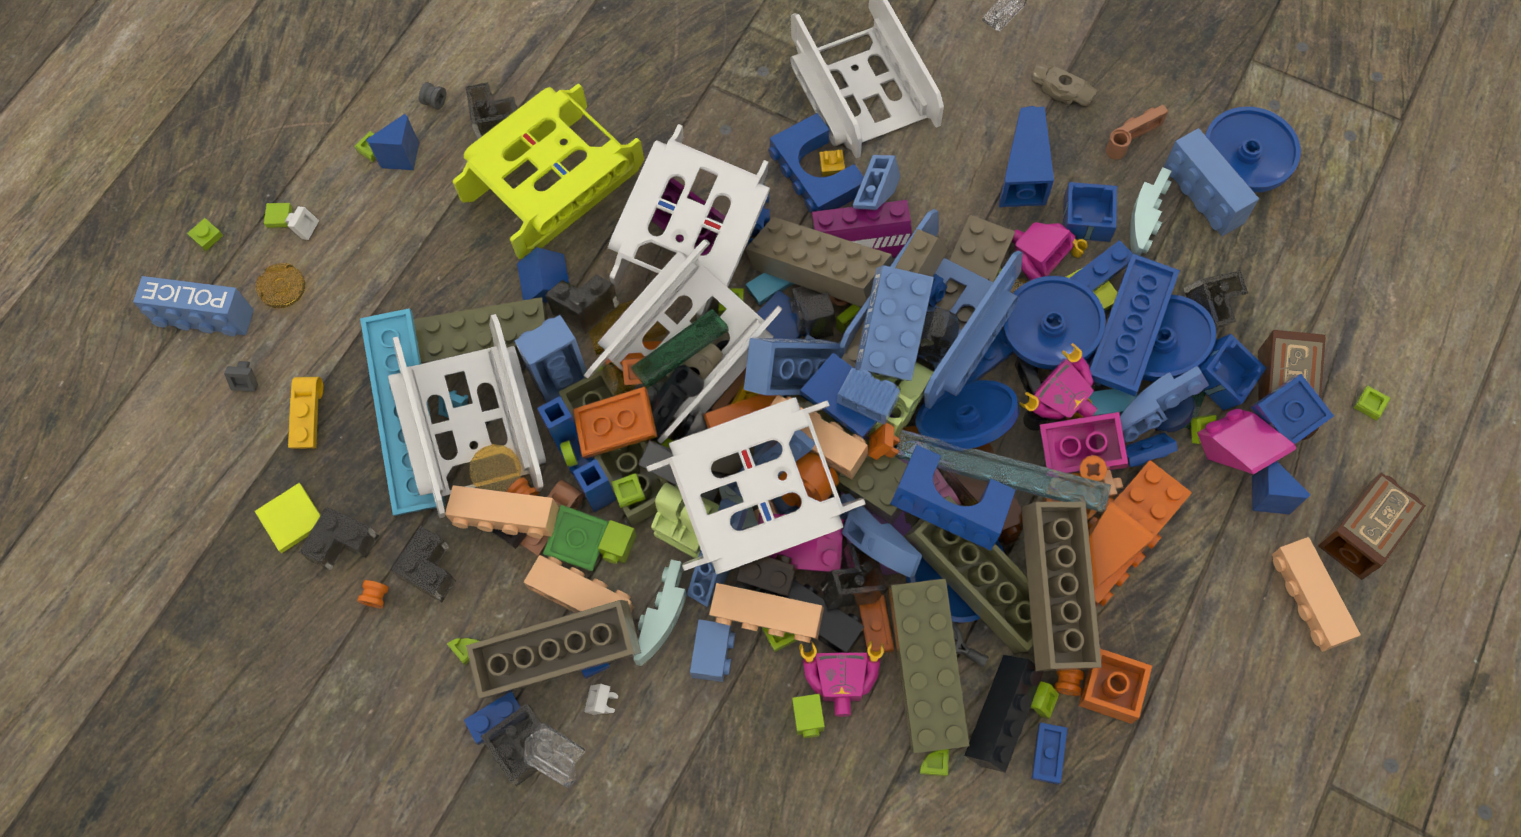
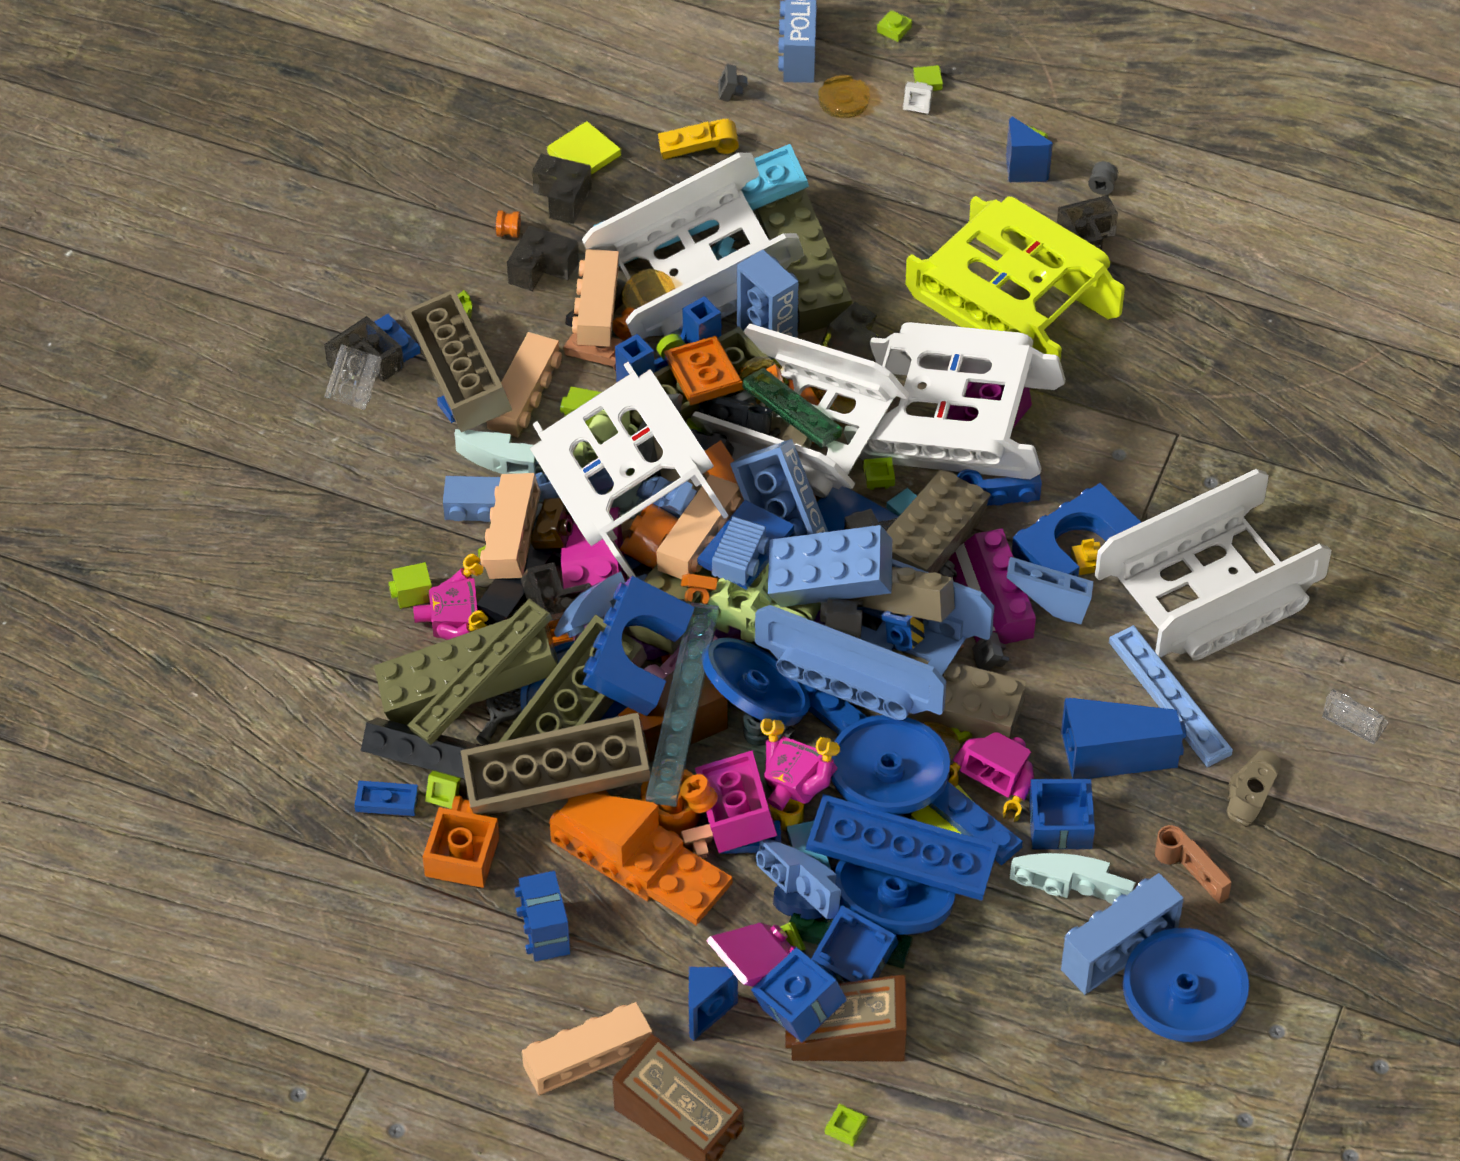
camera: 80 degrees right, 15 degrees down
(541, 272) = (892, 309): blue slope -> none
(576, 538) = (582, 368): bright green tile -> none
(597, 700) = (415, 413): white tile -> none
(936, 763) = (370, 703): lime tile -> none
(956, 646) = (479, 671): none -> olive tile
(967, 128) = (1170, 694): none -> light blue tile
(1149, 449) = (748, 880): blue plate -> none
(1194, 616) = (543, 916): none -> blue container
(1215, 295) = (956, 933): clear smoke brick -> none

